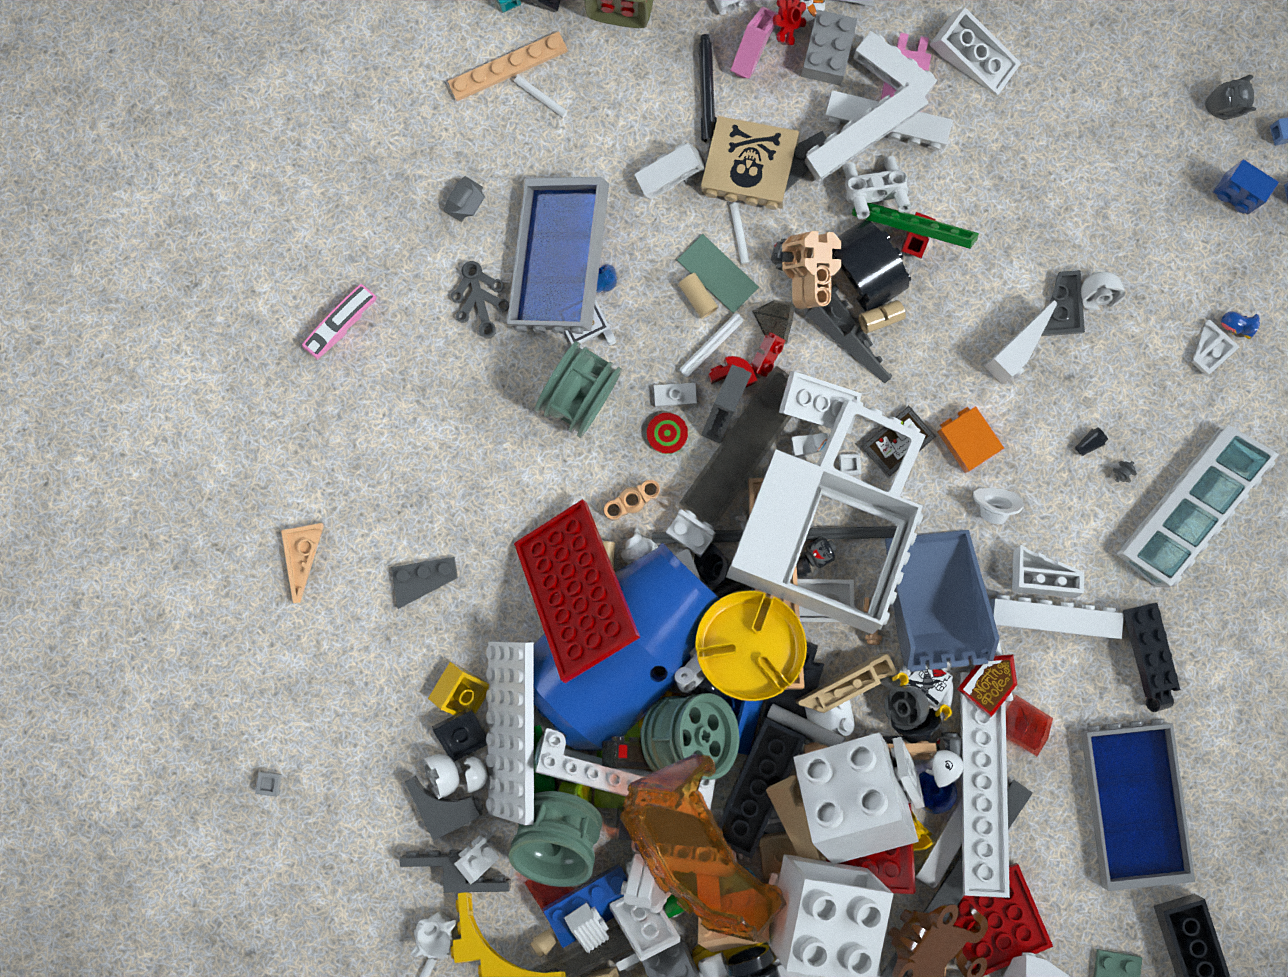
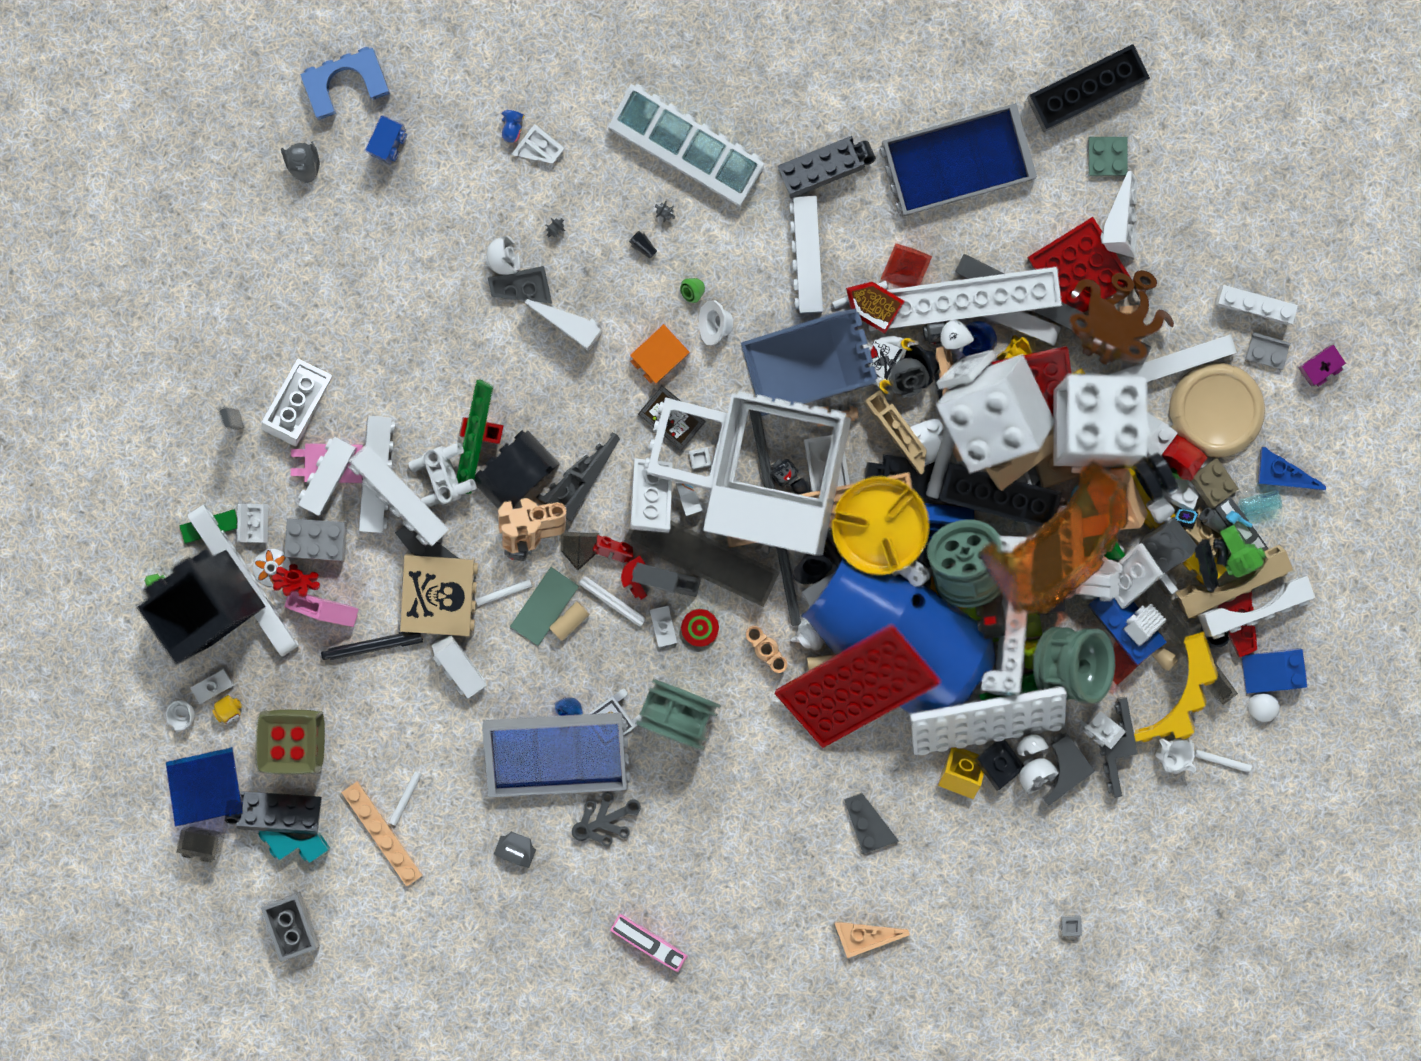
camera: 105 degrees left, 5 degrees up
(691, 532) = (787, 591): white bracket -> none
(882, 316) = (561, 451): tan pin -> none
(1035, 486) = (692, 289): none -> bright green cone
(1043, 576) = (772, 270): white wedge -> none
(1123, 351) = (555, 227): none -> dark grey wheel

